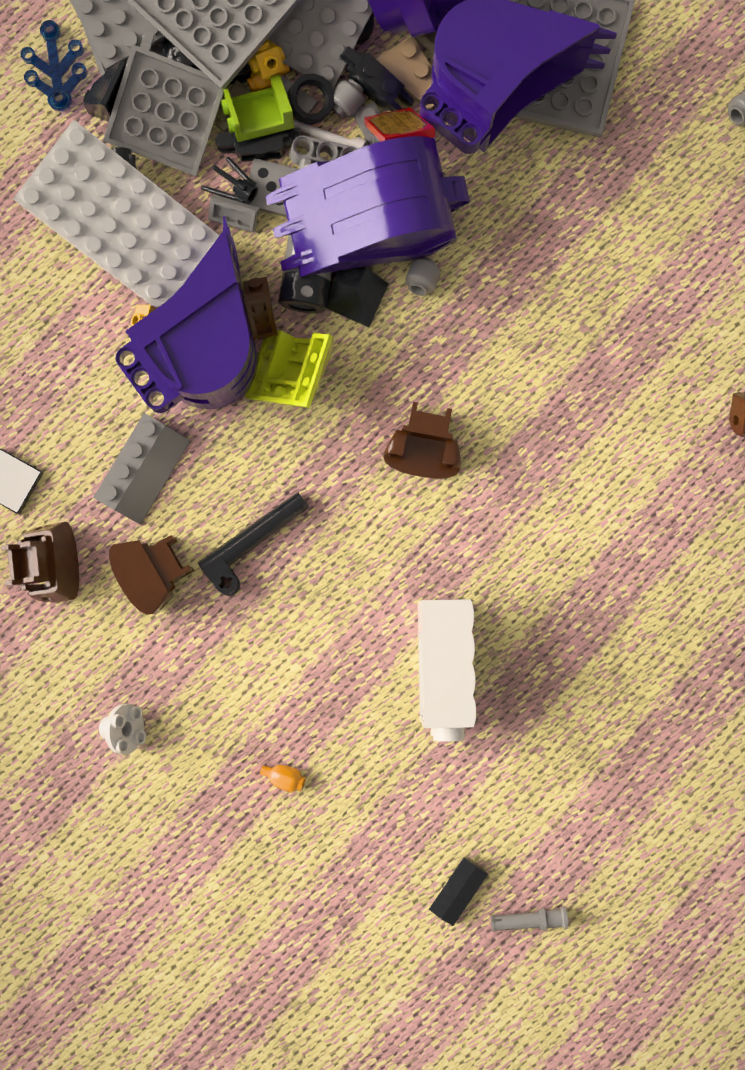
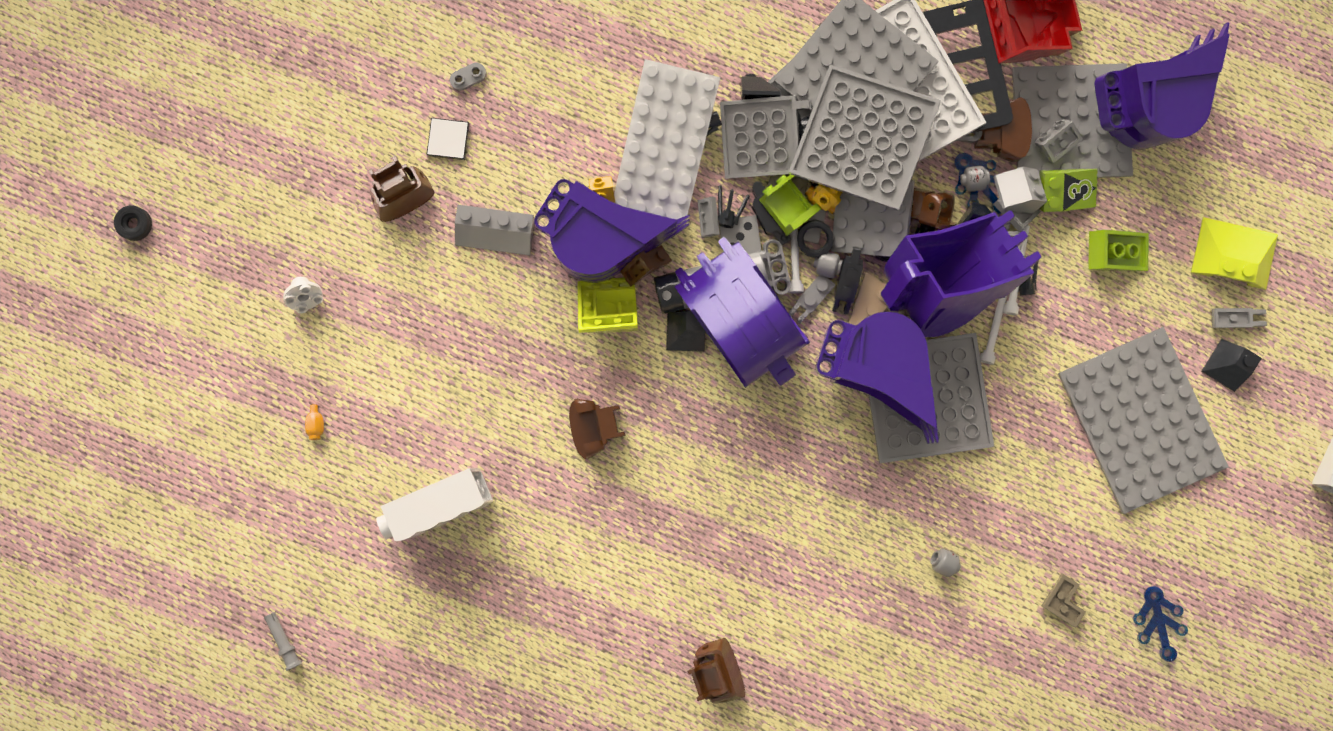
camera: 70 degrees right, 0 degrees up
(56, 69) = (762, 43): clear blue plant -> none
(147, 572) = (419, 265): reddish brown piece -> none
(217, 563) = (448, 312): black axle -> none
(398, 124) = (813, 312): tile -> none
(422, 276) = (718, 374): light grey head -> none
(458, 891) = (282, 581): black piece -> none

